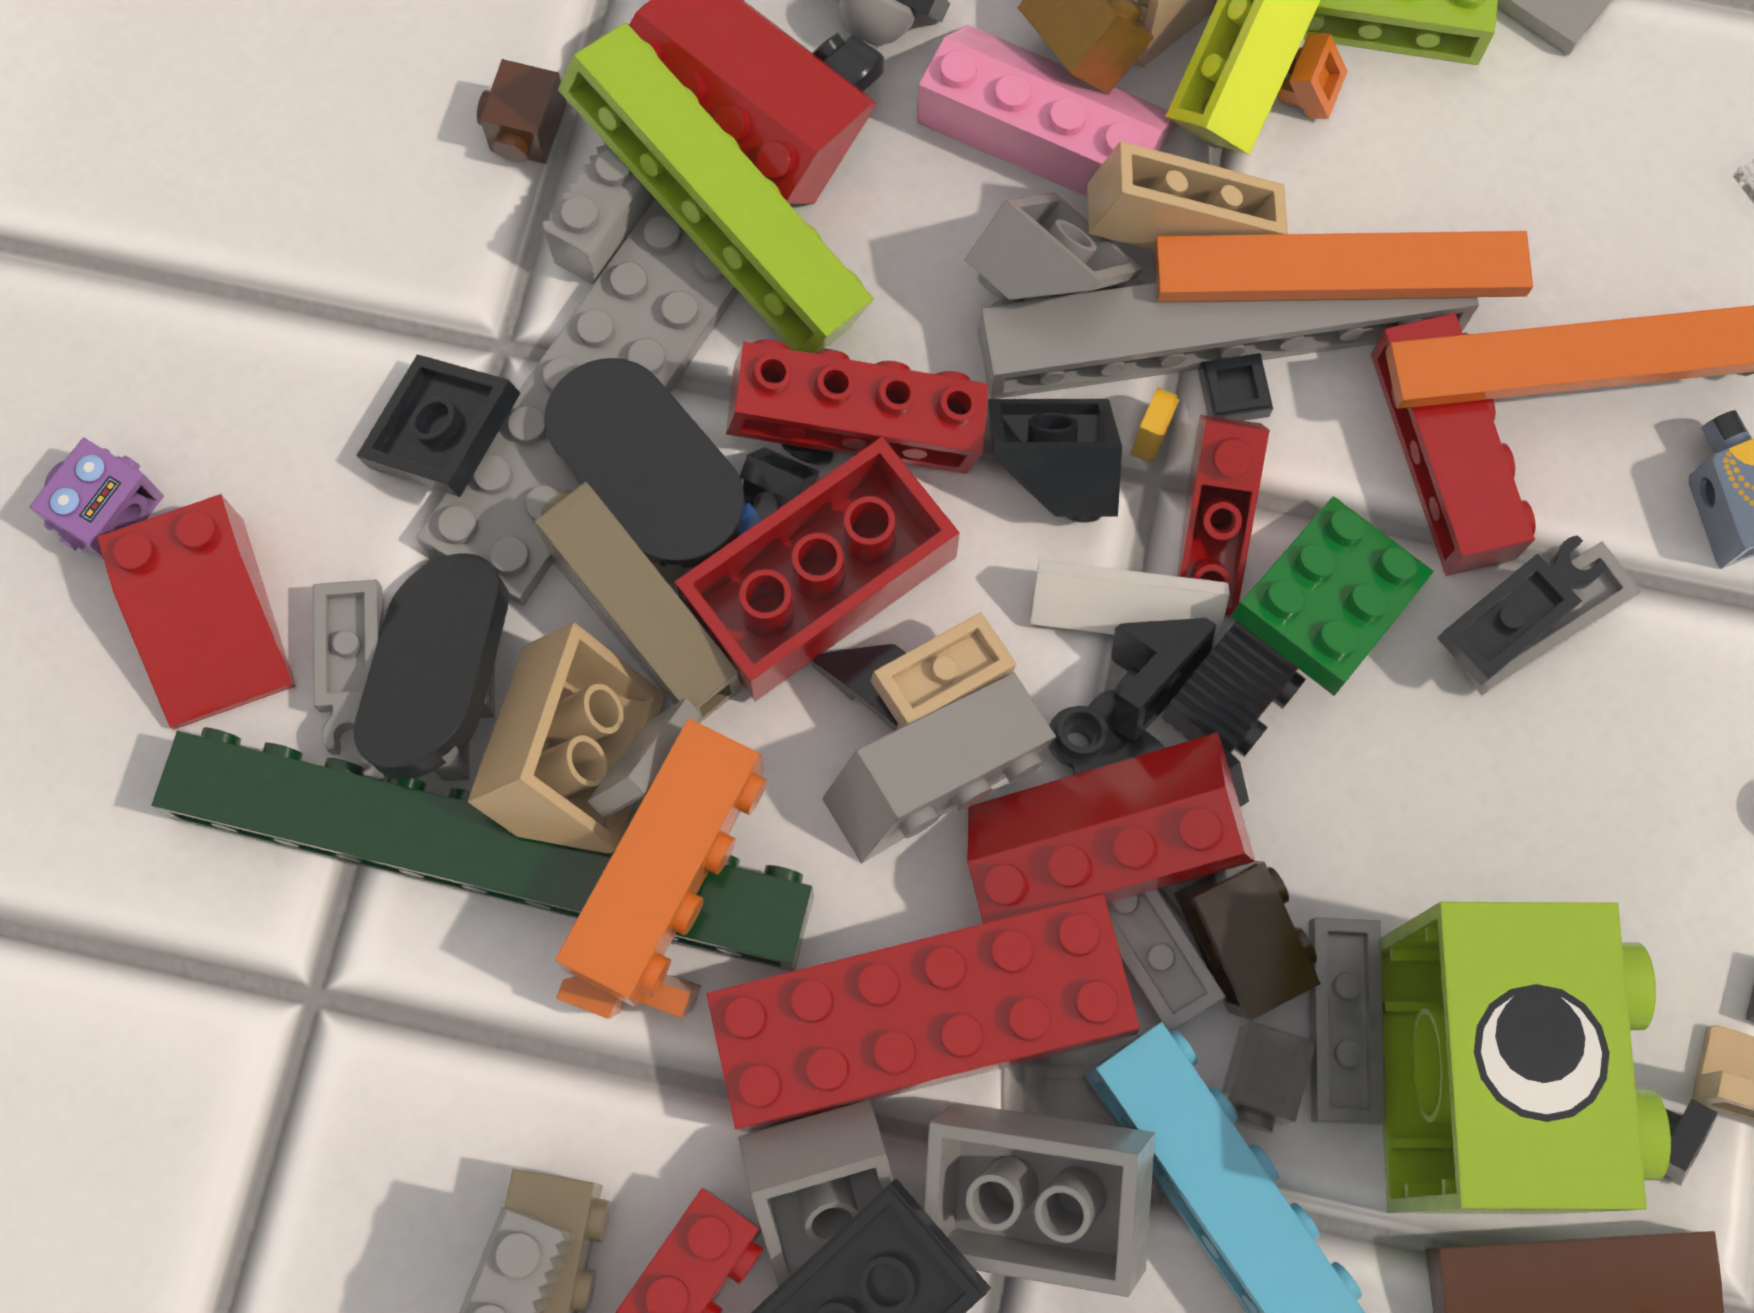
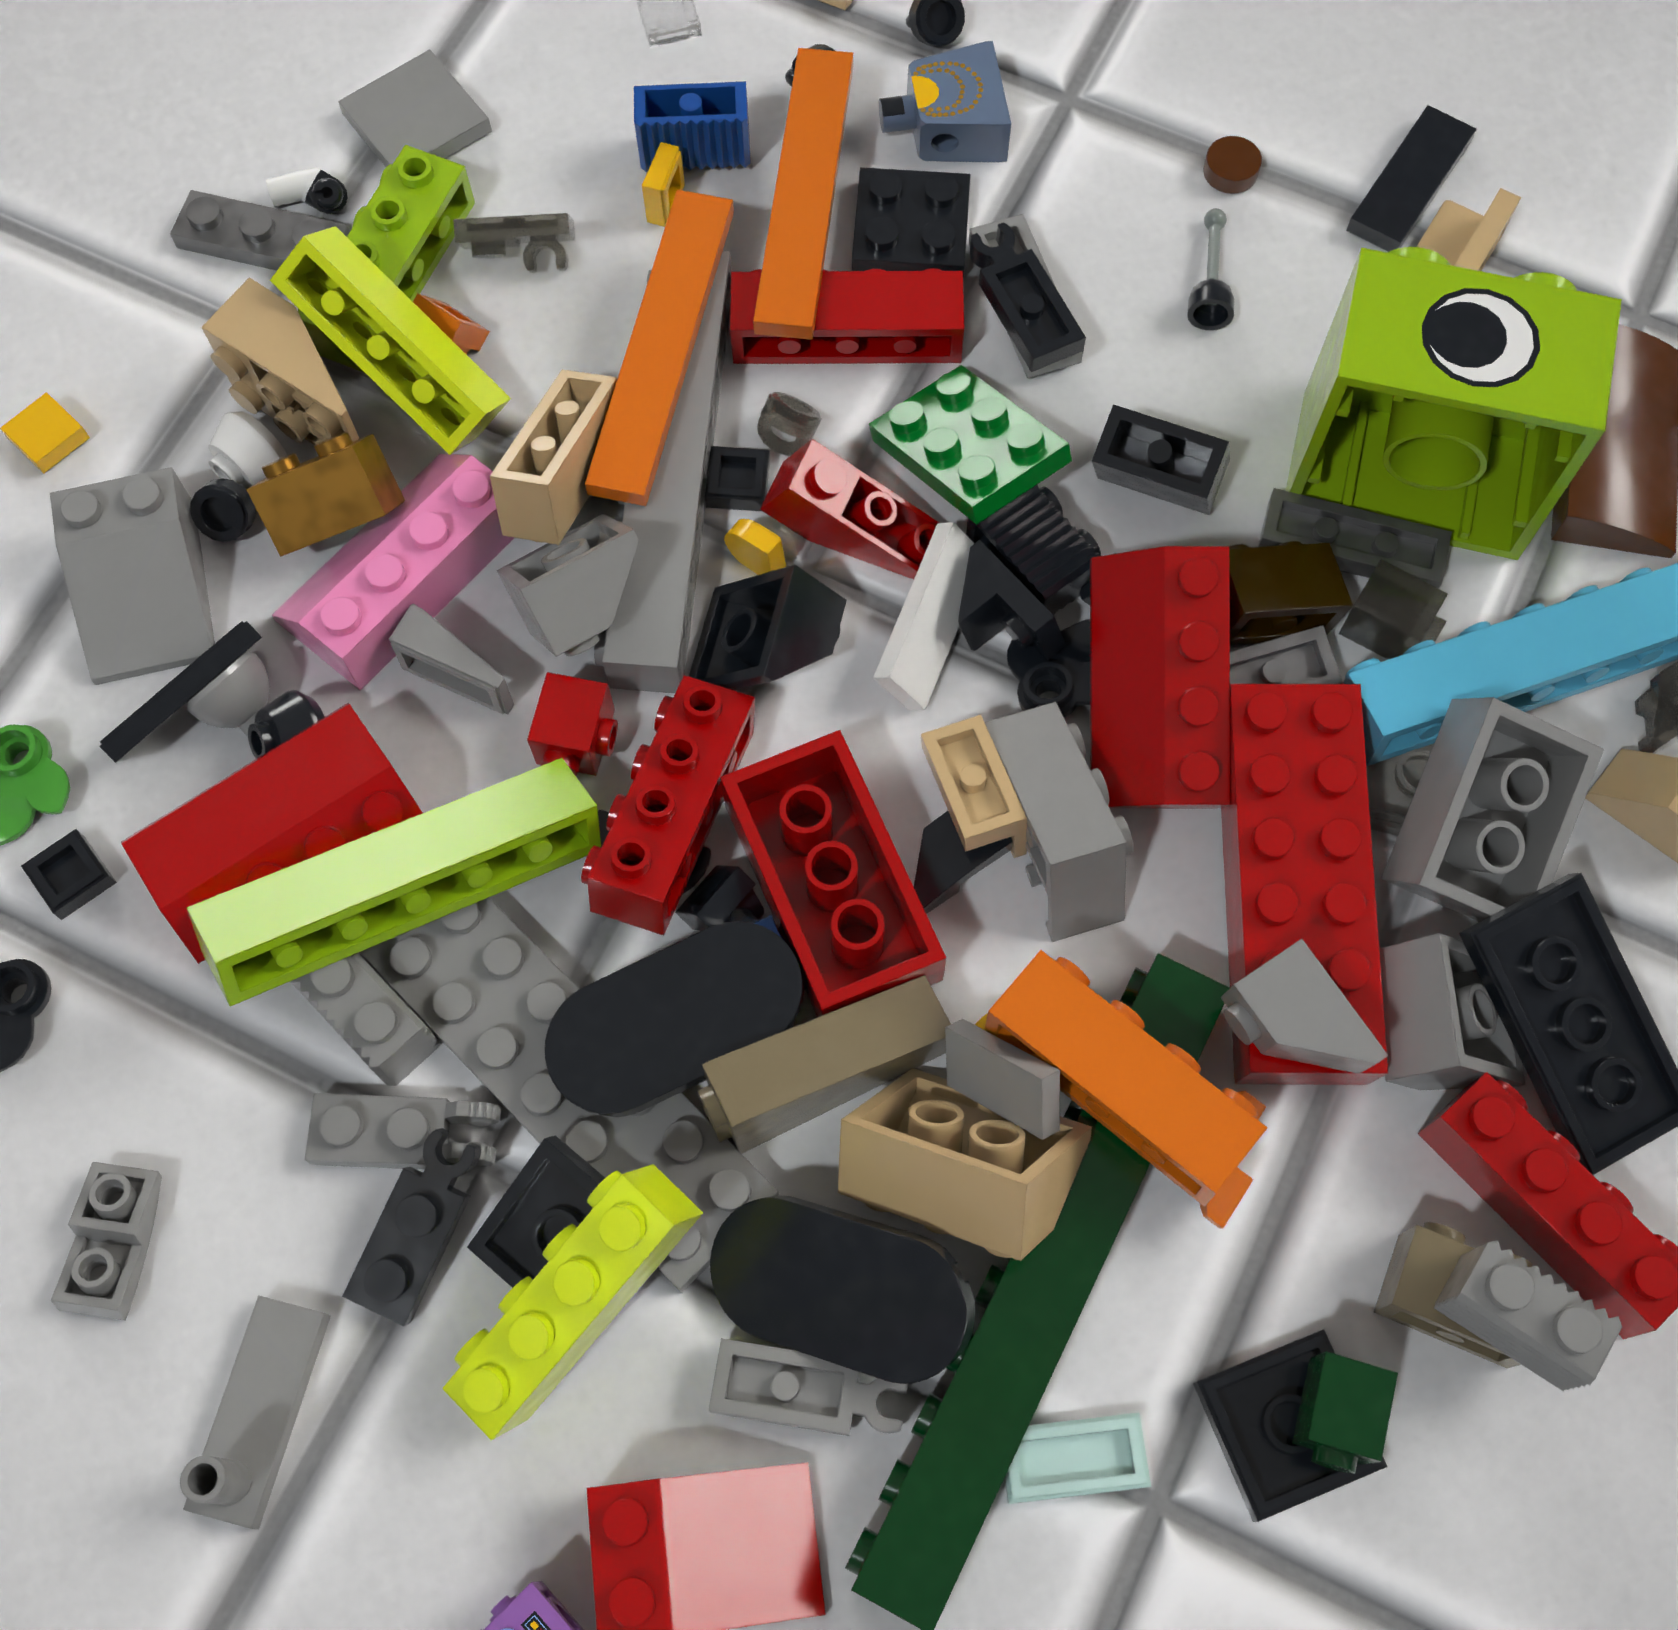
camera: 75 degrees left, 5 degrees down
(251, 234) = (255, 1414): none -> light grey piece
(336, 916) = (1079, 1459): none -> light aqua tile
(375, 439) = (571, 1300): none -> neon yellow brick
(379, 84) = (111, 1241): none -> light grey slope
(399, 1103) = (1255, 1422): none -> black tile
(404, 1138) = (1344, 1411): none -> dark green brick
(420, 307) = (412, 1233): none -> black plate
(508, 270) = (390, 1129): none -> light grey hinge
(522, 112) = (214, 1076): reddish brown brick -> none
(755, 1015) = (1300, 1014): none -> light grey slope
(919, 305) = (573, 723): none -> red brick
(963, 166) = (440, 657): none -> light grey slope
(1311, 418) = (790, 417): none -> clear smoke tile
(1371, 792) = (1161, 459): none -> black brick
(1432, 86) = (491, 235): none -> clear smoke plate
(1554, 225) = (662, 182): none -> yellow tile
(1599, 484) = (910, 220): none -> black plate
(1604, 816) = (1212, 299): none -> black hinge
(1629, 233) = (700, 118): none -> blue brick

